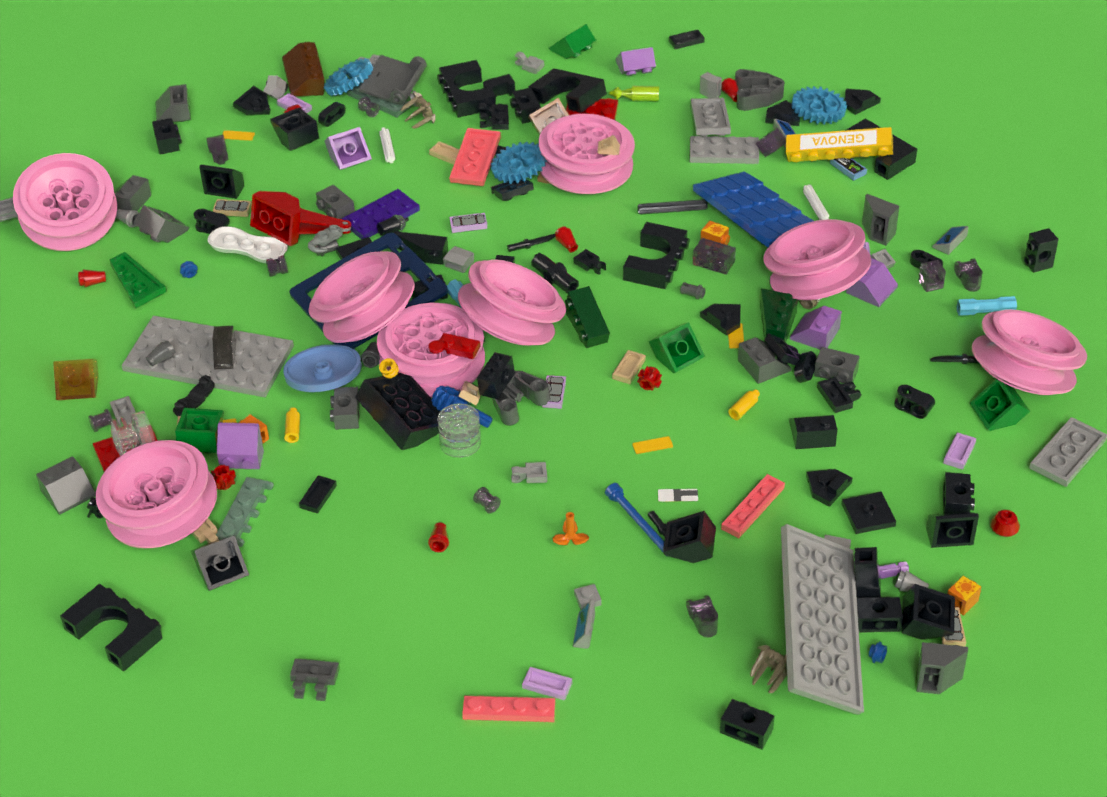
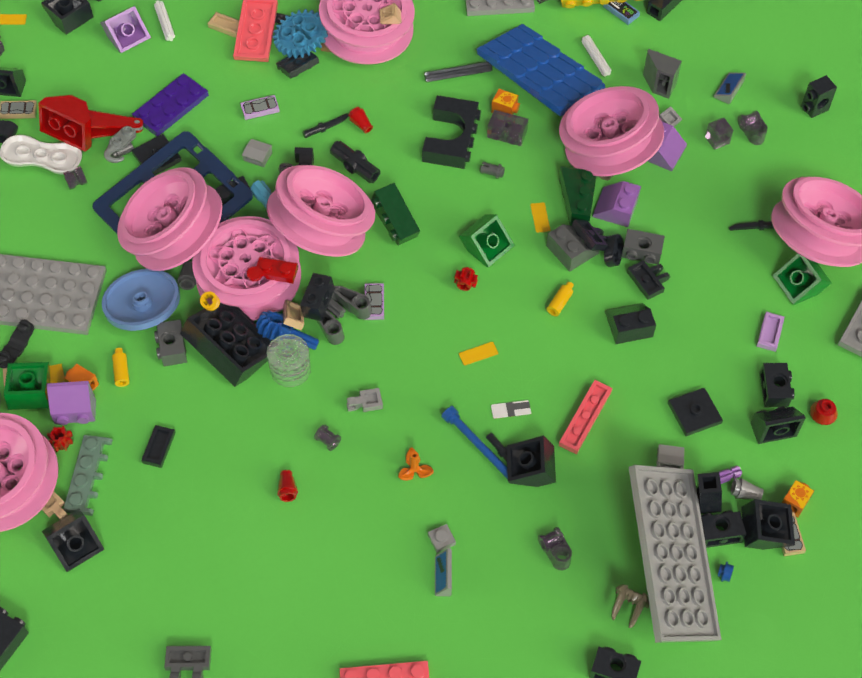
camera: 10 degrees left, 15 degrees up
(224, 347) = (37, 286): clear smoke slope -> none
(334, 202) = (122, 97): dark grey brick -> none
(392, 224) = (184, 117): black piece -> none
(427, 247) = (221, 142): black slope -> none
(547, 683) = (417, 642): lavender tile -> none
(589, 260) = (385, 143): black plate -> none
(629, 367) = (443, 265): tan tile -> none
(723, 317) = (526, 197): black plate -> none
(827, 485) = (652, 384): black plate -> none
(915, 402) = (722, 282): black piece -> none
(920, 256) = (710, 113): black beam -> none
(940, 667) = (786, 586): dark grey slope -> none
(974, 306) = (761, 165): medium azure axle -> none

